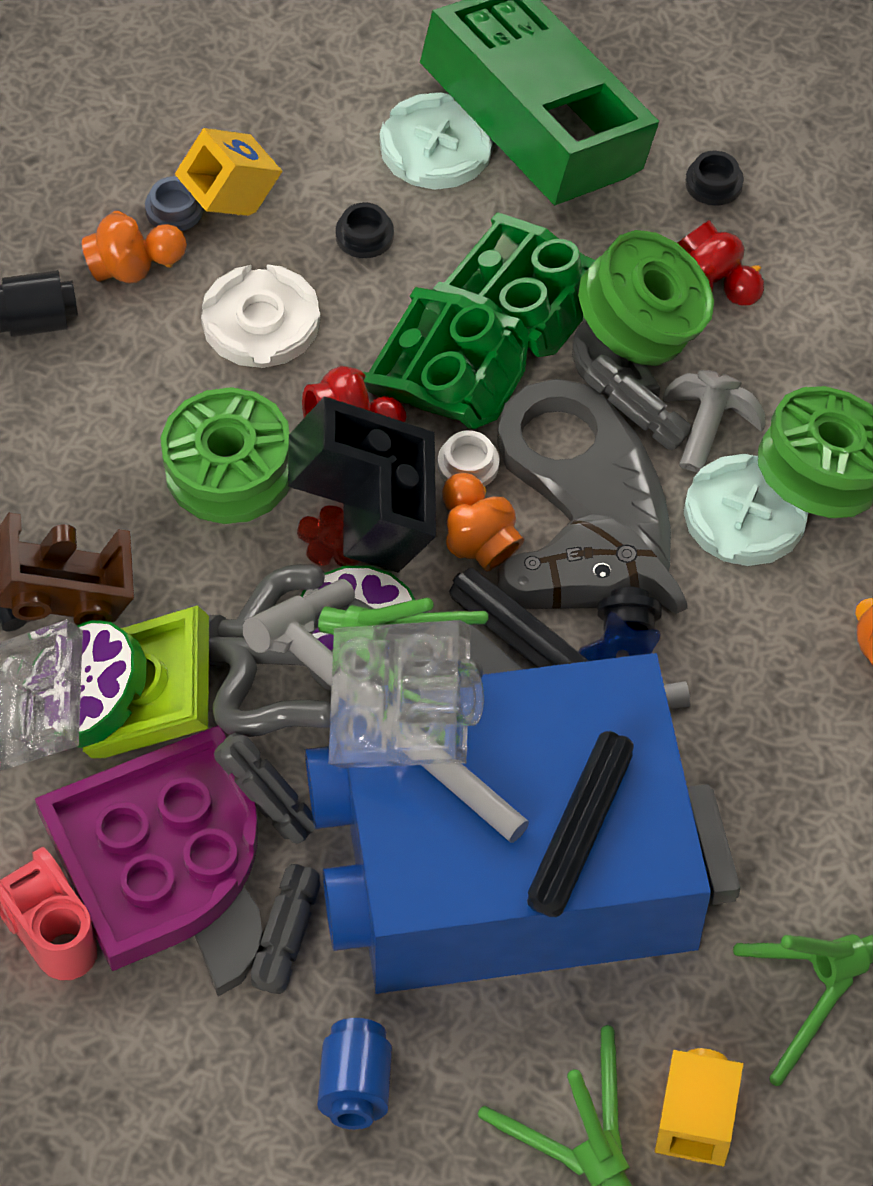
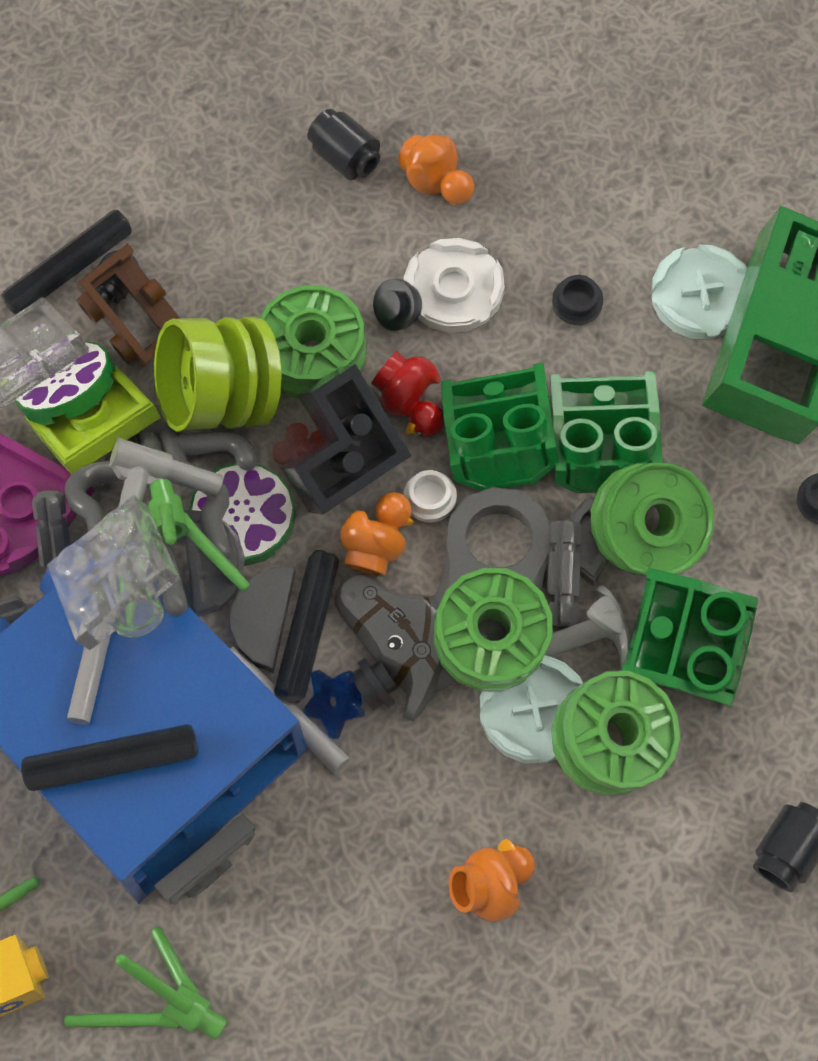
camera: 60 degrees right, 10 degrees up
(172, 204) = (502, 170): sand blue plate -> none
(212, 531) = (217, 373): none -> lime wheel
(228, 172) = (545, 181): yellow brick -> none
(247, 364) = (397, 304): none -> black plate
(660, 477) = (501, 597): none -> bright green wheel
(721, 256) = (740, 541): red animal -> none
(769, 338) = (691, 635): none -> green slope

